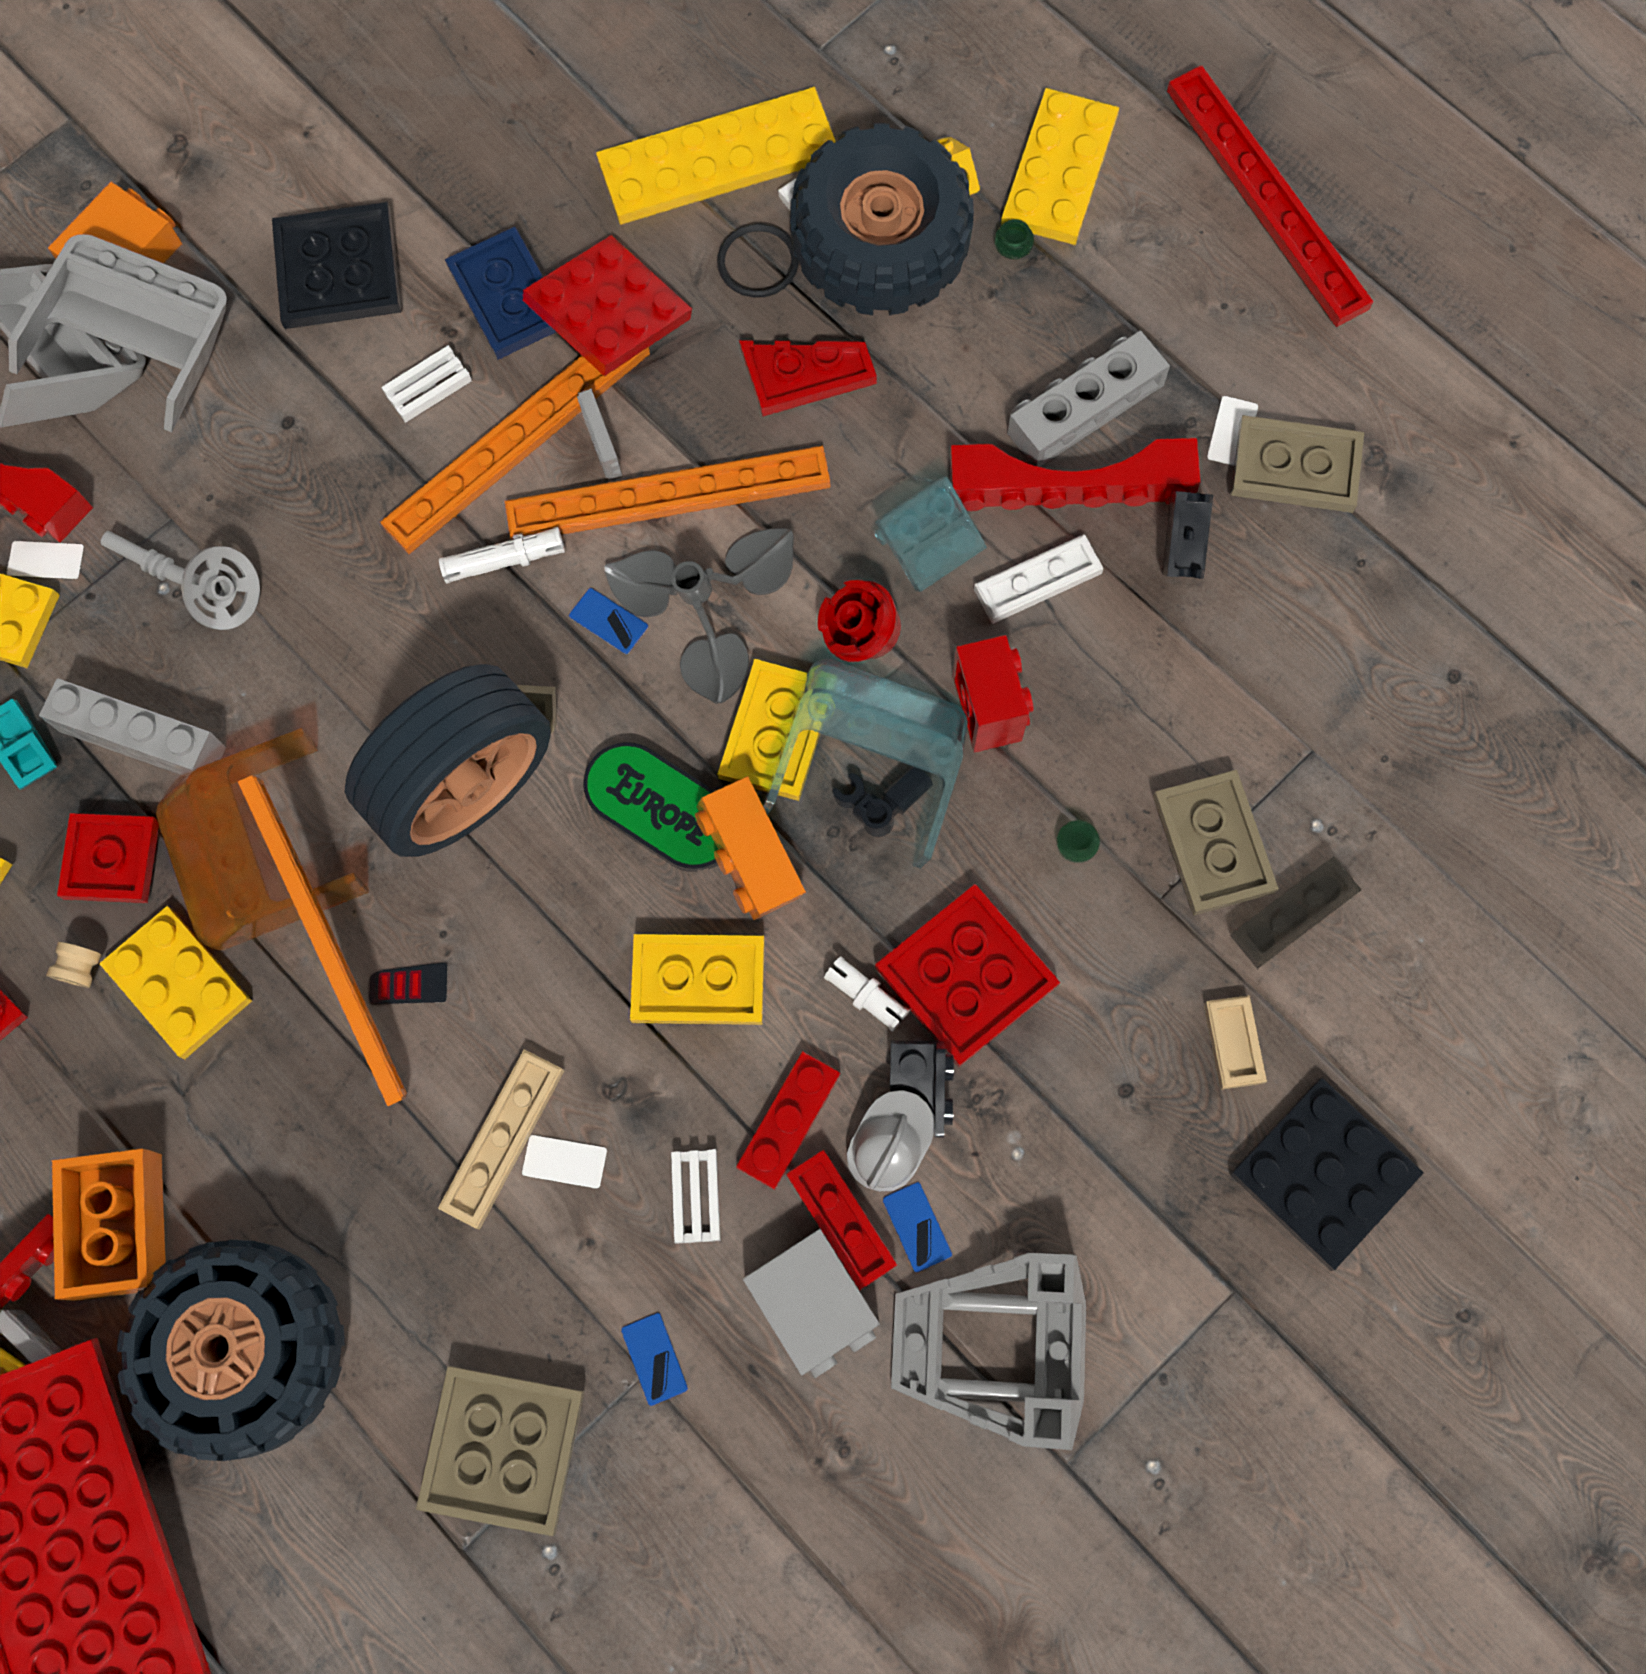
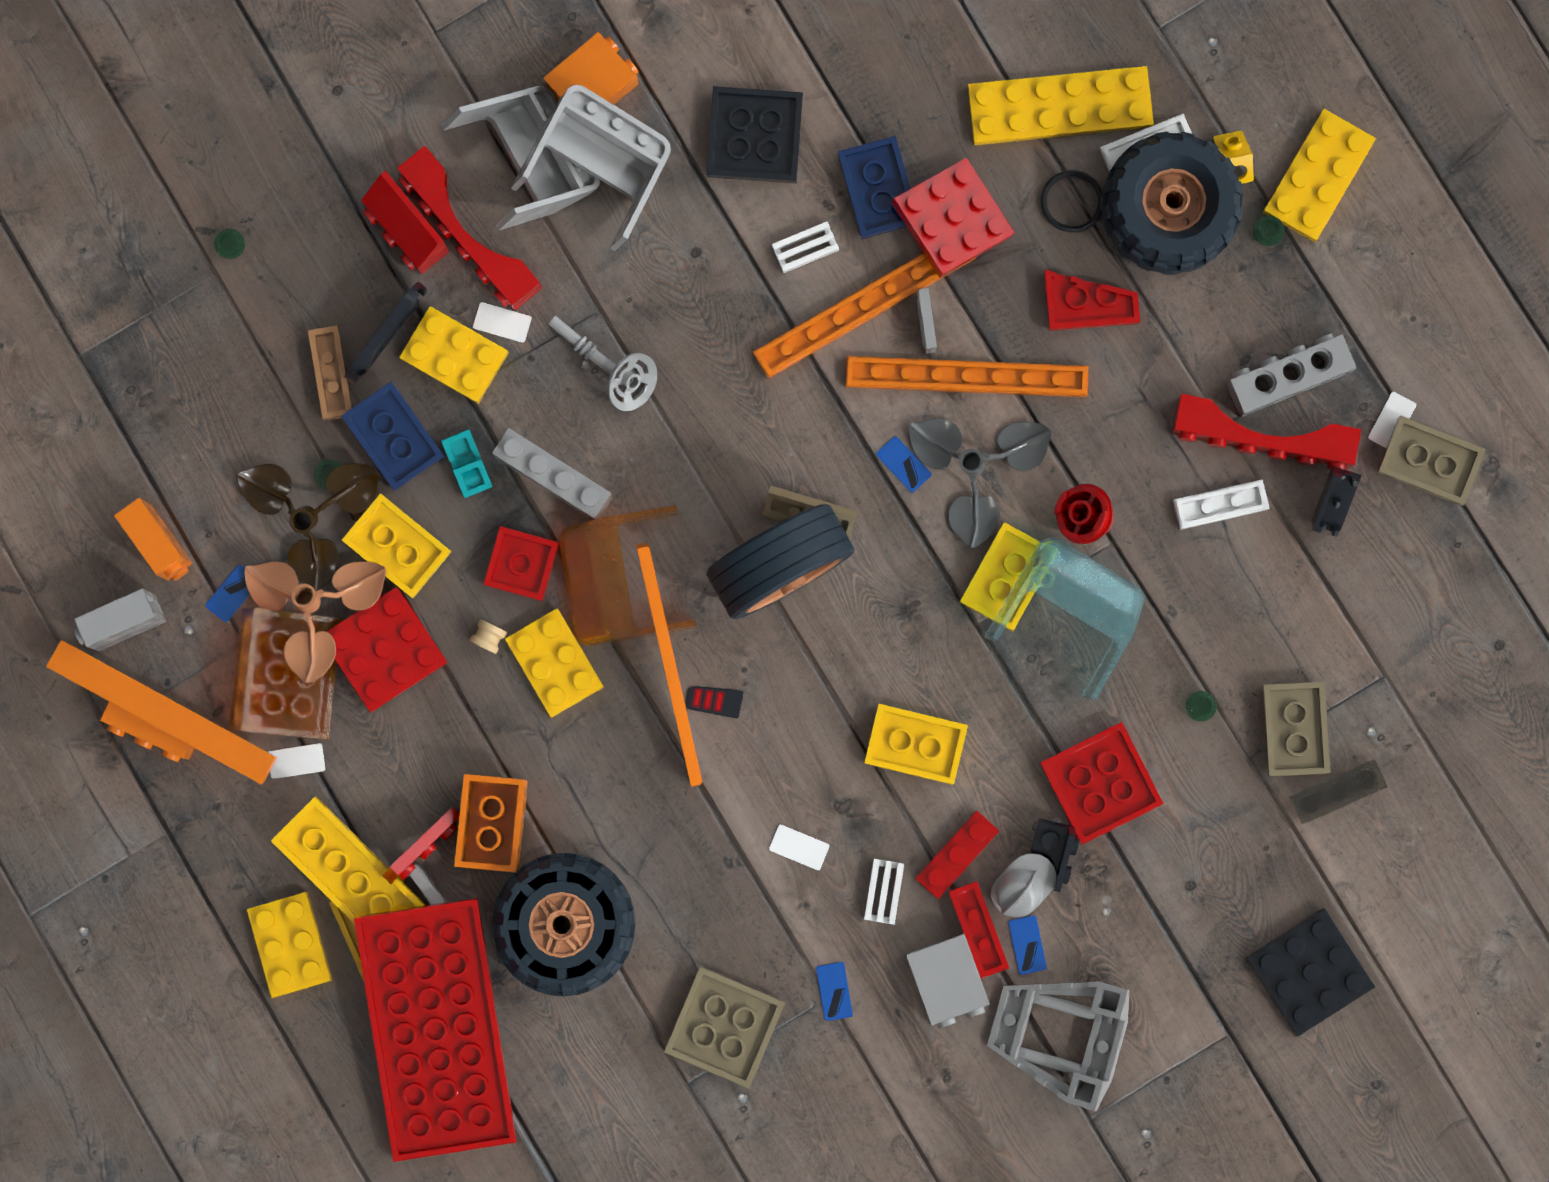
camera: 10 degrees right, 10 degrees up
(501, 1139) = (760, 822): tan tile -> none
(509, 553) = (843, 398): white pin -> none
(650, 804) = (914, 613): green tile -> none
(749, 849) = (971, 662): orange brick -> none
(866, 993) = (1029, 780): white pin -> none
(877, 813) = (1066, 655): black bar -> none
(930, 534) = (1151, 456): clear light blue plate -> none
(991, 693) = (1166, 589): red brick -> none
(1235, 1042) = (1272, 870): tan tile -> none
(1269, 196) = (1469, 238): red plate -> none

